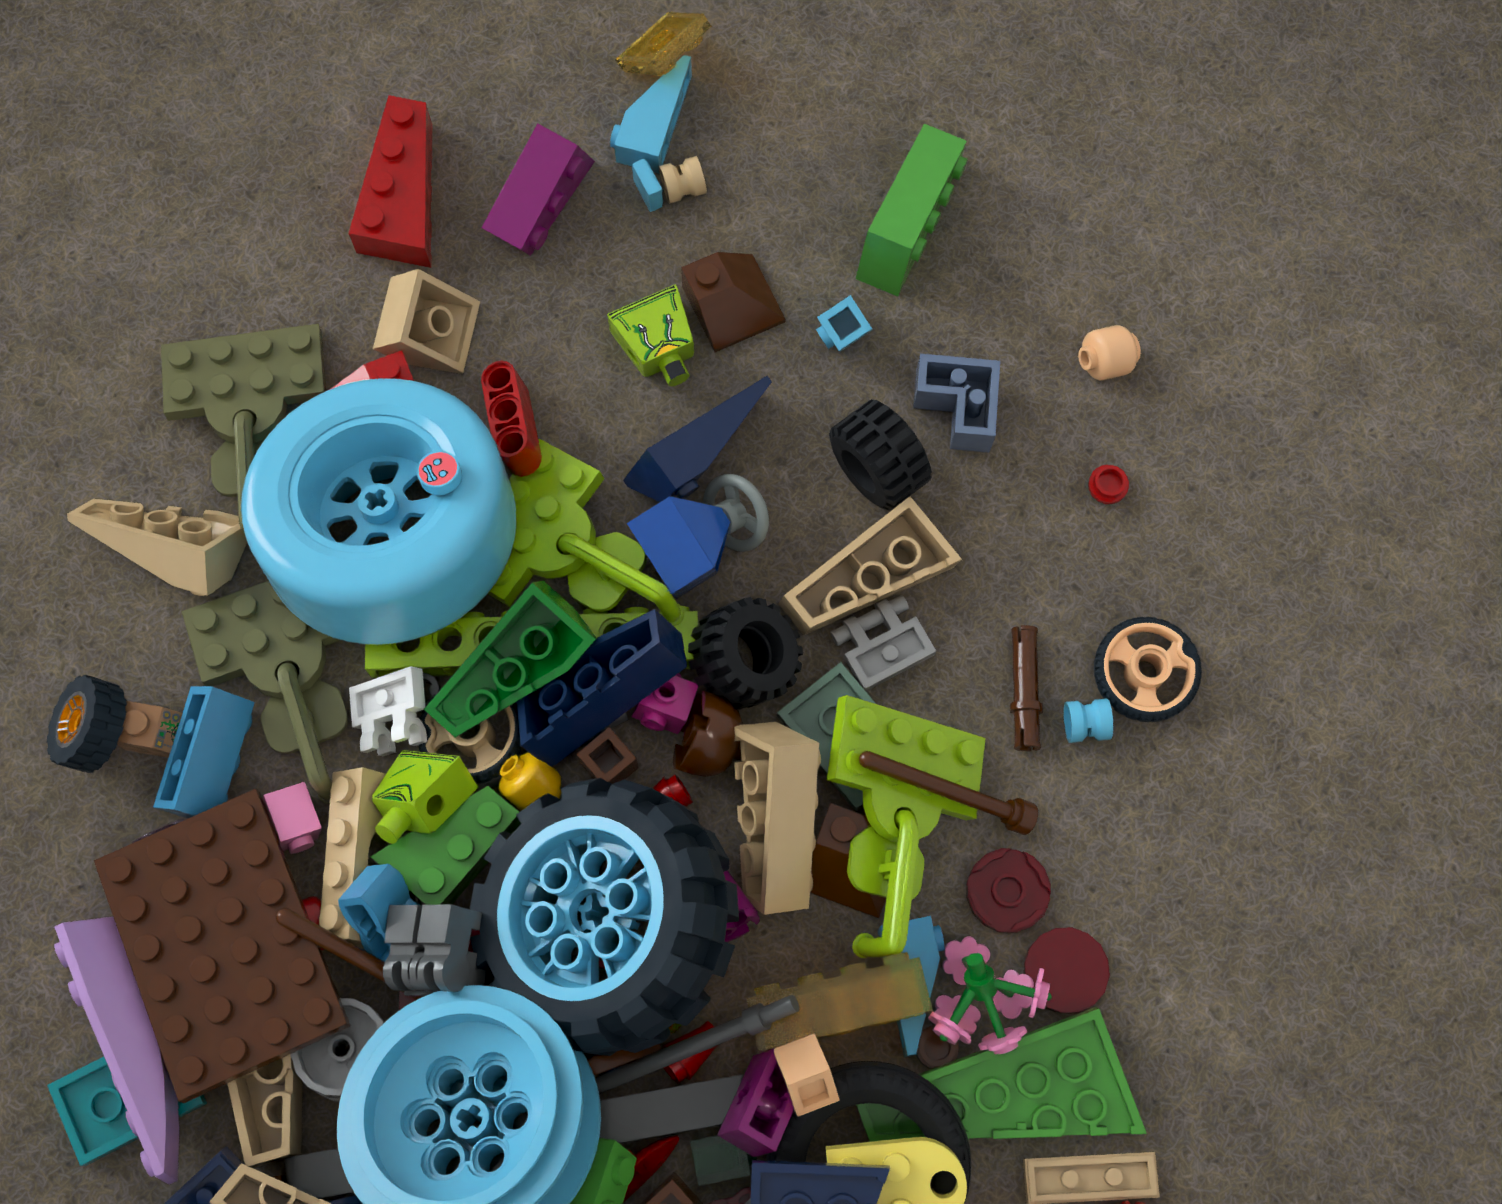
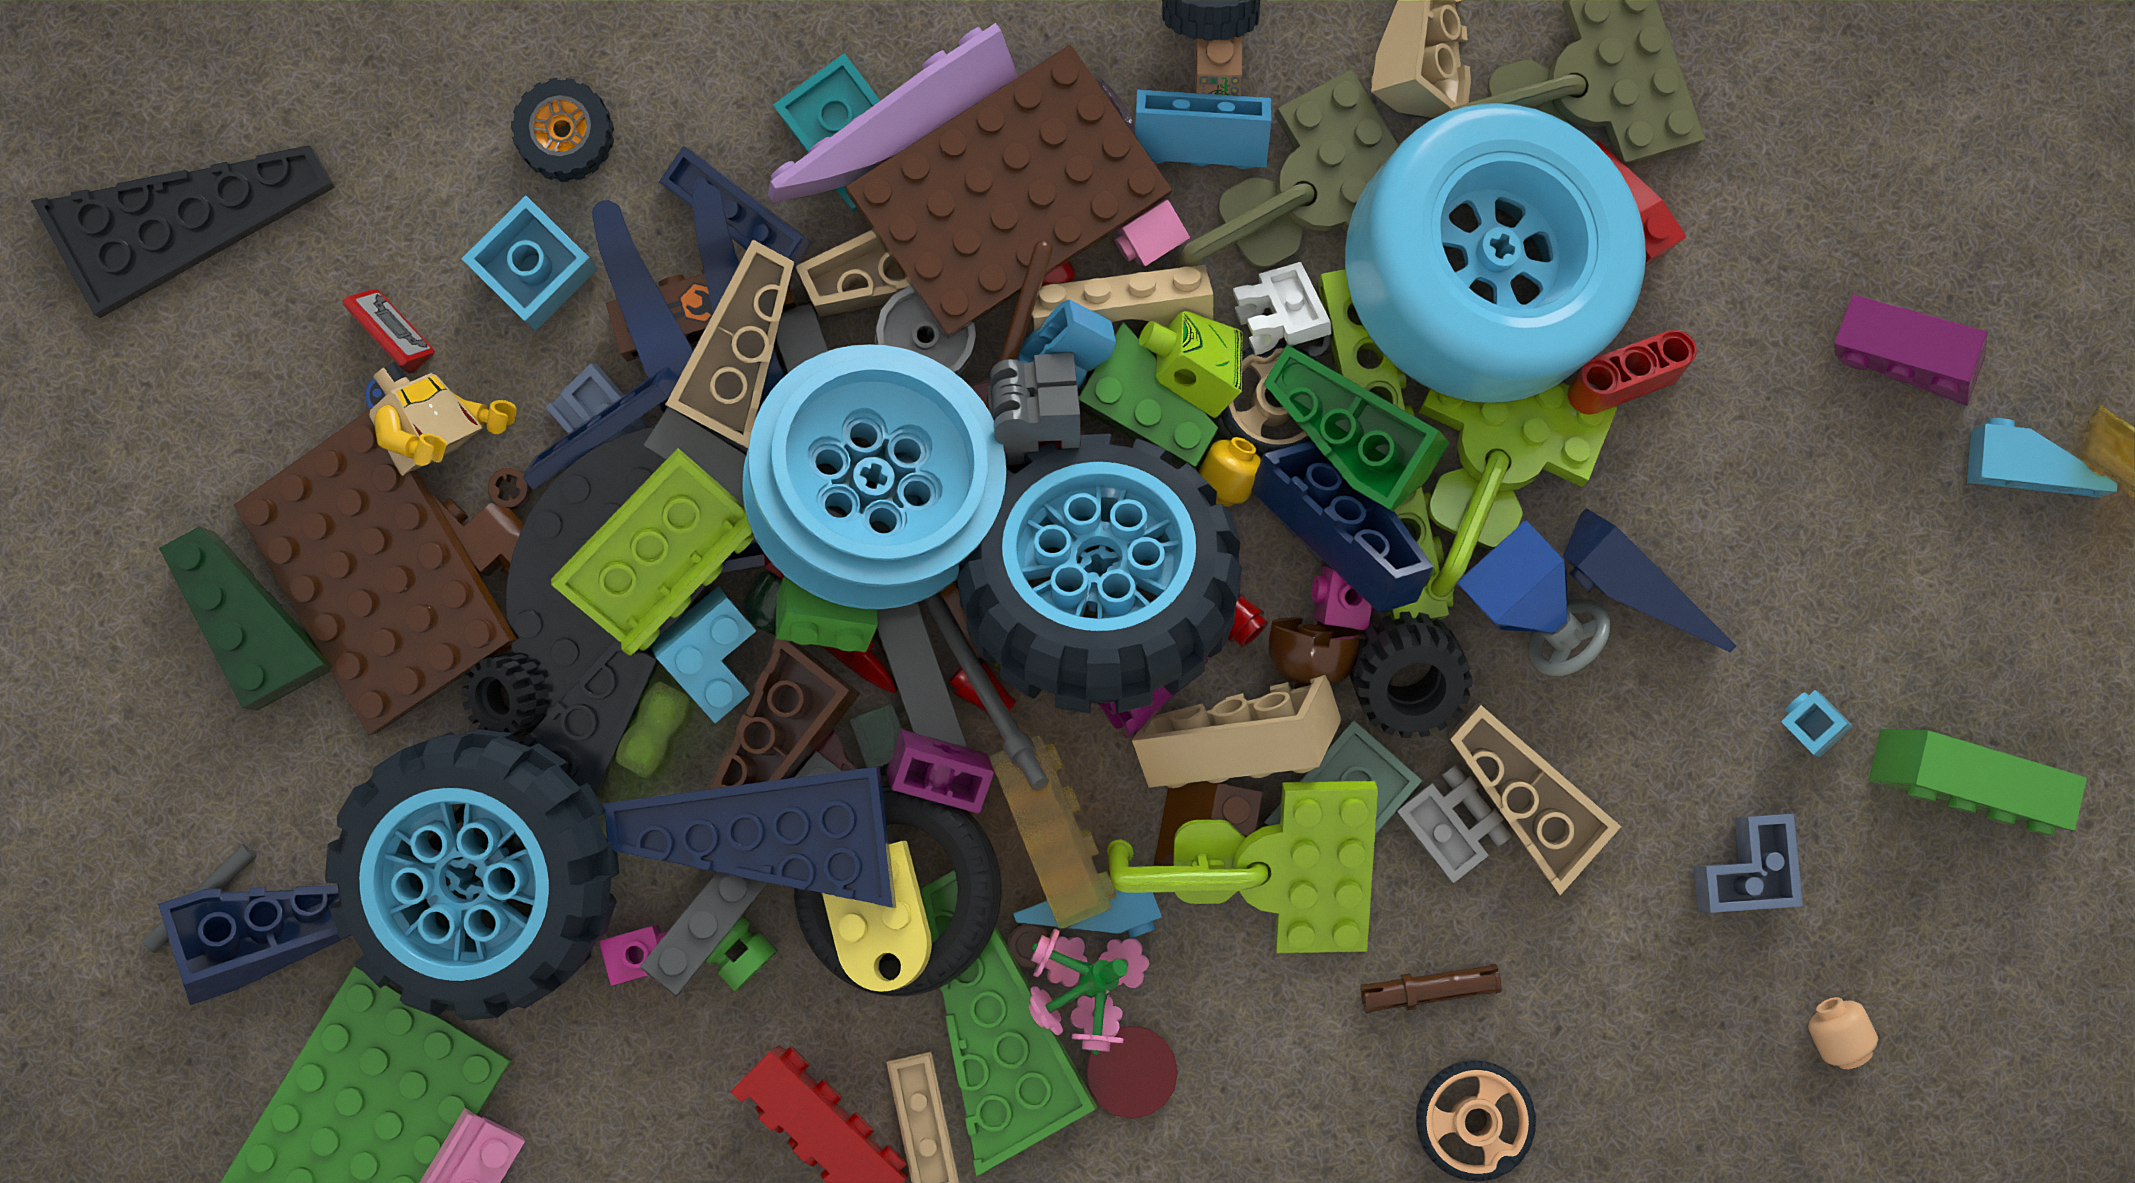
camera: 80 degrees right, 10 degrees up
(396, 193) = (1879, 191): red wedge -> none
(427, 322) = (1728, 257): tan slope -> none
(439, 472) = (1537, 307): tile -> none
(608, 758) = (1268, 548): reddish brown brick -> none
(647, 185) = (1946, 471): medium azure tile -> none
(655, 335) = (1763, 513): lime torso -> none
(682, 179) = (1961, 510): tan wheel -> none
(730, 298) = (1826, 590): reddish brown slope -> none
(806, 1074) = (972, 808): light nougat panel -> none
(880, 454) = (1665, 786): black tyre -> none
(995, 898) = (1192, 984): dark red tile -> none
(1016, 814) = (1288, 997): reddish brown piece -> none
(1088, 720) = (1406, 1061): medium azure wheel -> none
(1108, 484) = (1684, 1052): red plate -> none

